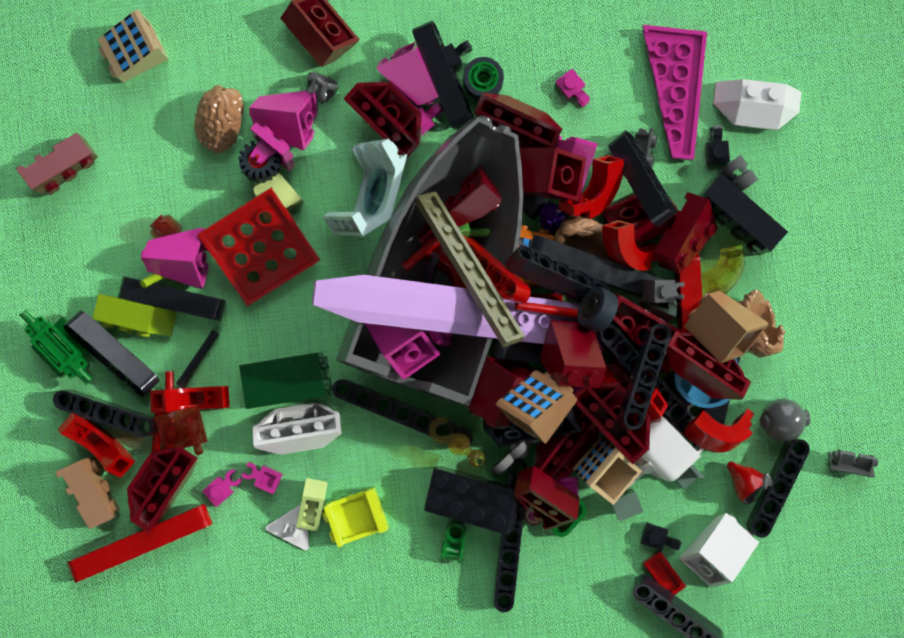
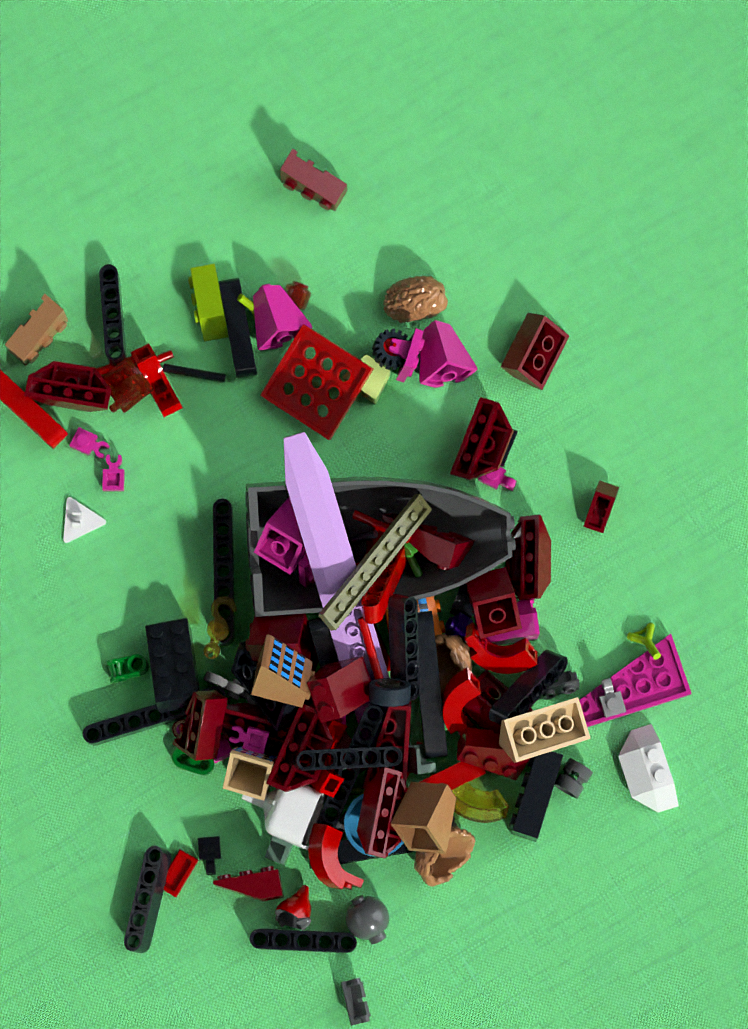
camera: 65 degrees right, 10 degrees down
(57, 347) = (154, 250): green piece -> none
(99, 442) = (84, 319): red arch -> none
(111, 353) = (166, 297): black beam -> none
(131, 47) = (443, 198): tan slope -> none
(285, 380) = (209, 455): dark green brick -> none
(297, 429) = (169, 484): white wedge -> none
(311, 504) = (107, 526): yellowish green arch -> none
(322, 86) = (485, 374): dark grey piece -> none
(355, 517) = (112, 570): neon yellow panel -> none
(377, 192) = (410, 460): light aqua panel -> none
(409, 74) = (531, 446): dark pink slope -> none
(442, 74) = (542, 474): black beam -> none
(455, 53) = (563, 475): black plate -> none
(484, 66) = (562, 502): wheel -> none
(496, 33) = (601, 506): none -> dark red arch
(572, 85) = (586, 595): dark pink plate -> none
(578, 455) = (253, 739): none -> dark pink plate
(627, 505) = (227, 808): sand green panel -> none
(639, 50) = (647, 640): none -> lime piece
(661, 290) = (435, 750): dark grey brick -> none
(684, 107) = (611, 702): none -> light grey plate
(692, 181) = (543, 730): none -> tan slope
(712, 511) = (259, 886): none -> dark red slope
(717, 150) = (589, 752): black plate -> none
(720, 551) = (222, 911): white slope -> none

